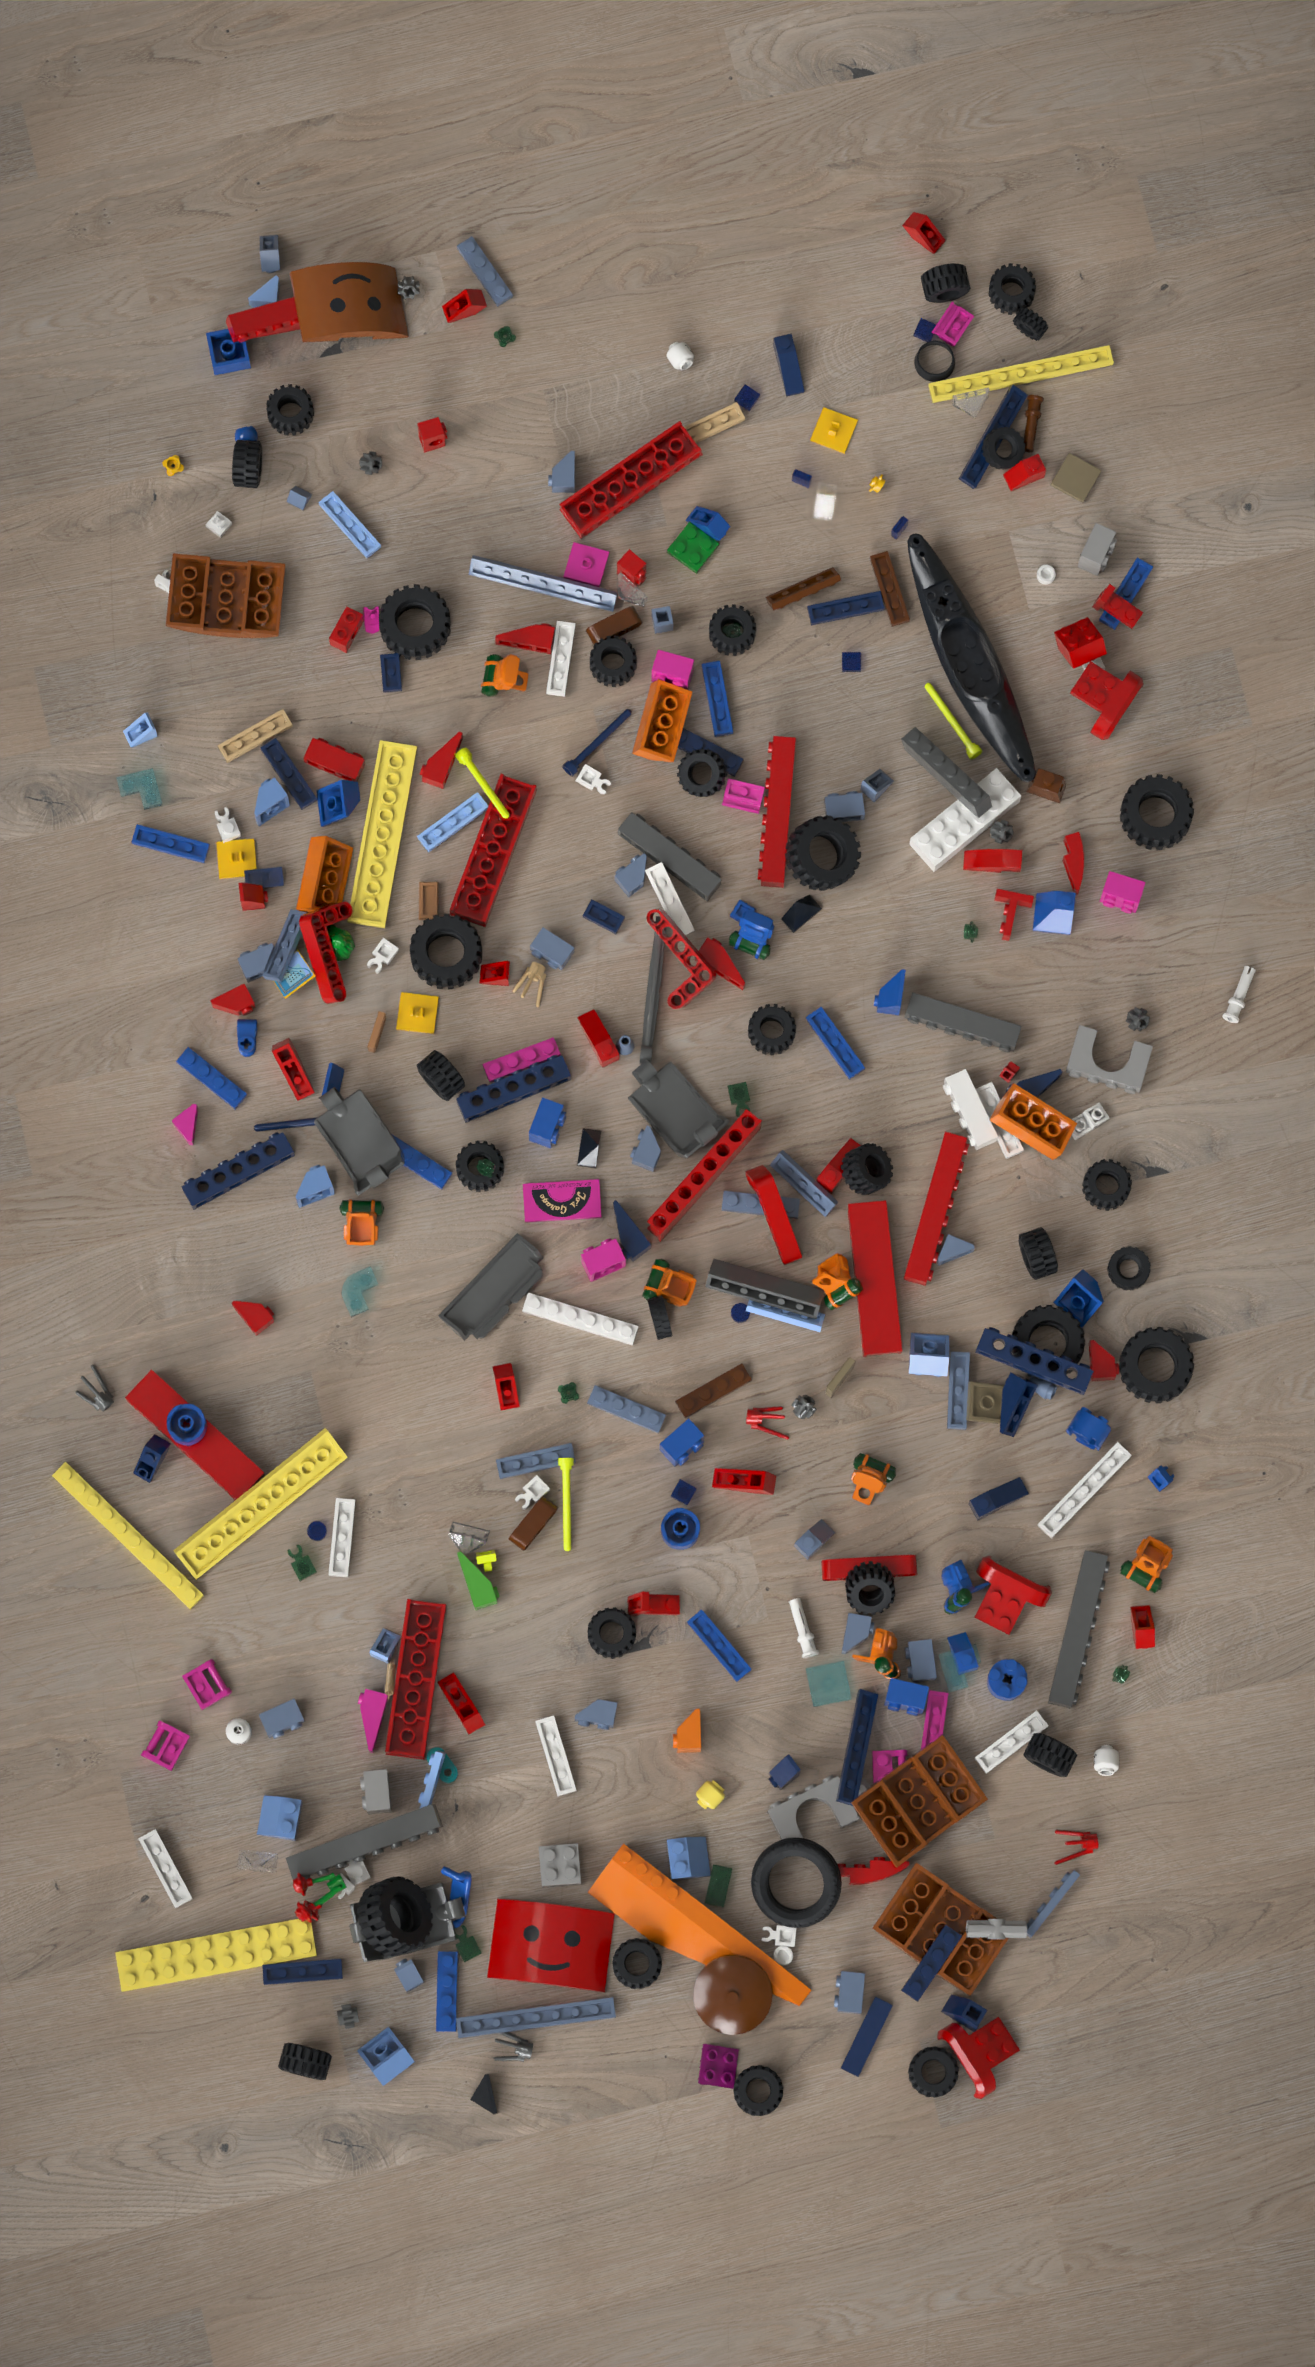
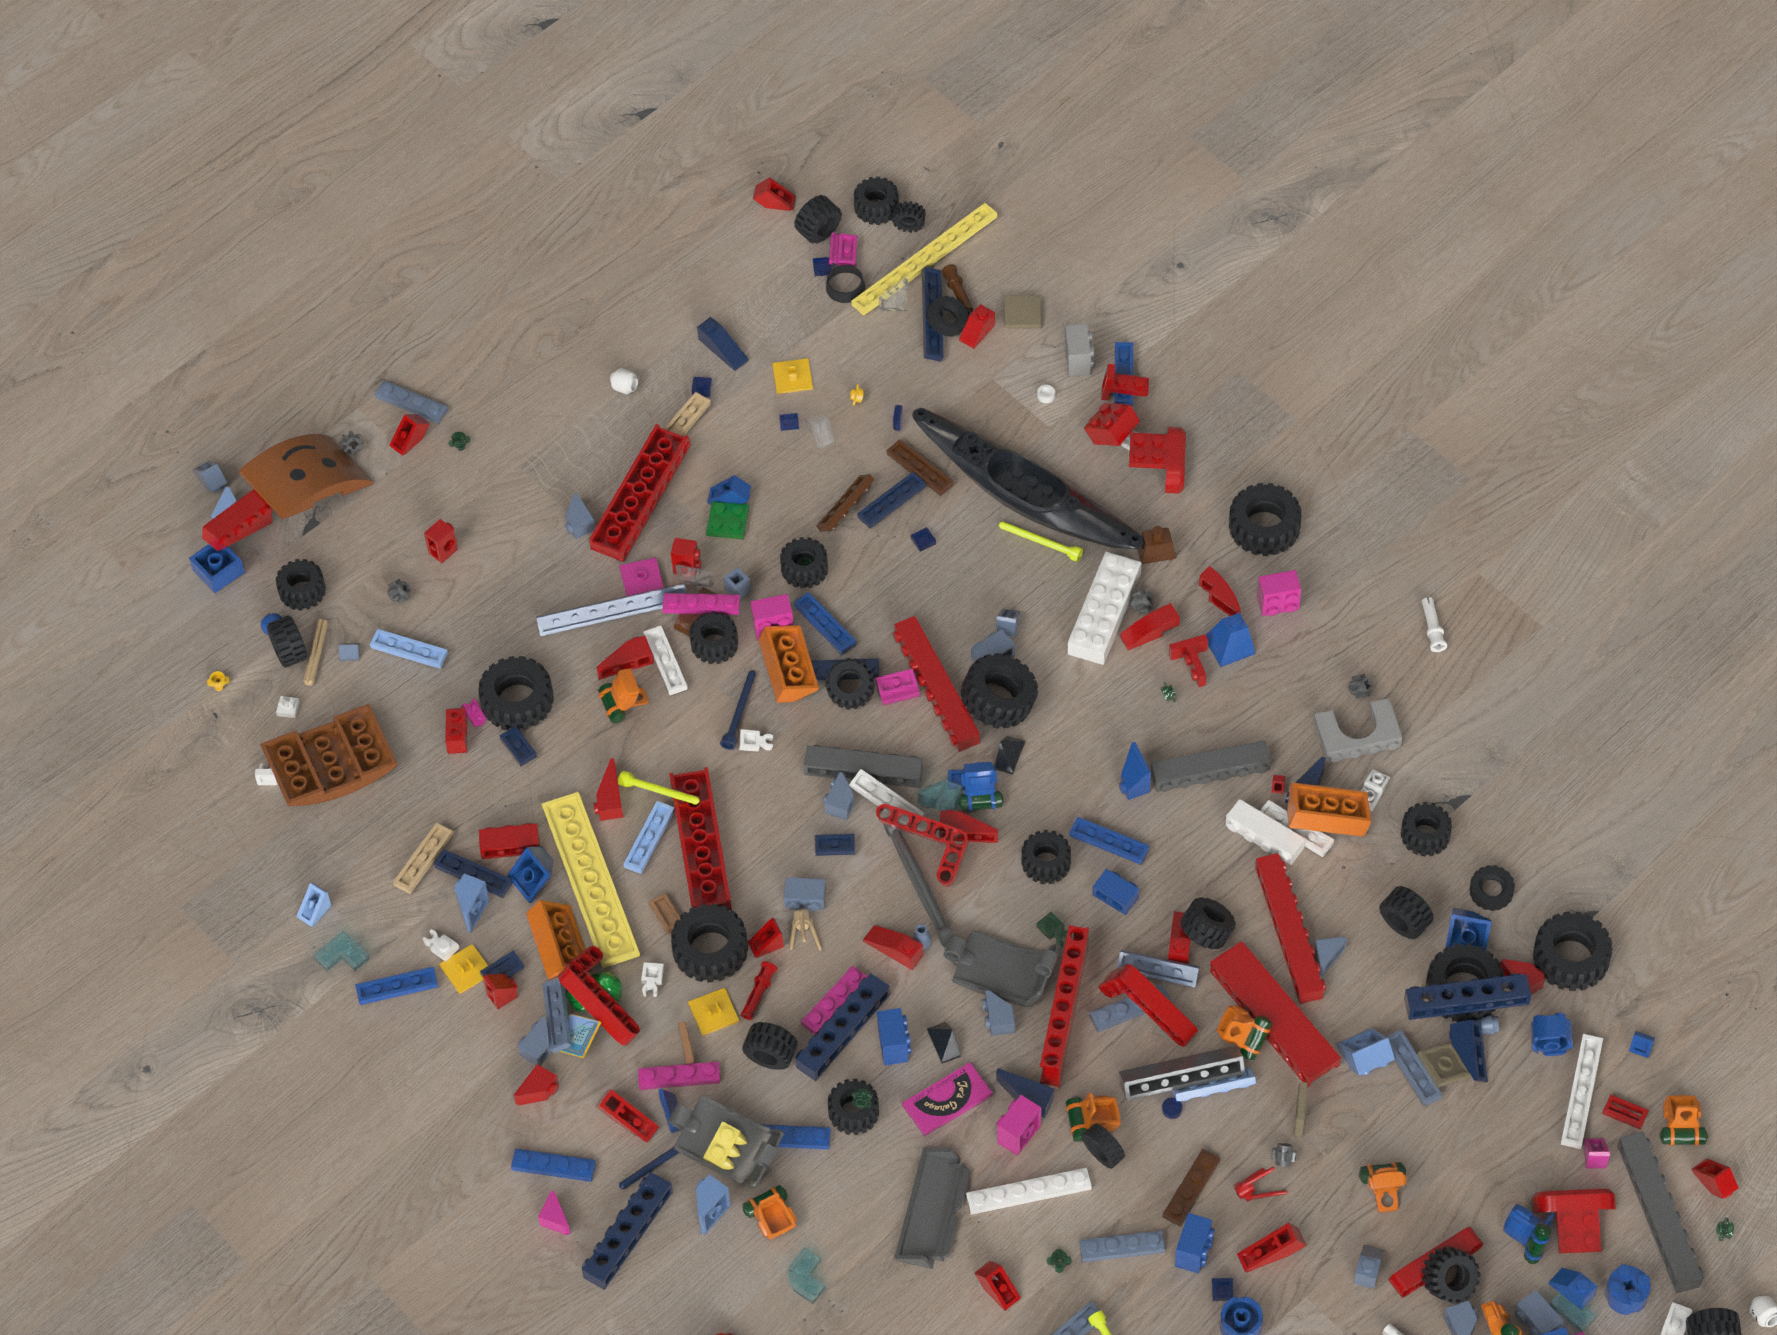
camera: 25 degrees left, 20 degrees down
(247, 1034) = (566, 1111): blue piece -> none
(269, 482) = (315, 652): none -> tan axle
(355, 1142) = (723, 1146): none -> light yellow plate
(356, 1055) = (679, 1075): none -> dark pink plate
(471, 1010) = (762, 982): none -> red pin
(619, 623) = (701, 603): none -> dark pink plate
(719, 922) = (940, 796): none -> clear light blue slope
(811, 1093) = (1116, 891): none -> blue brick
(946, 772) = (1065, 574): dark grey brick -> none
(998, 1498) = (1509, 1141): dark blue slope -> none
(1061, 1548) = (1595, 1153): none -> dark pink slope
(1105, 1522) = (1624, 1115): none -> red tile

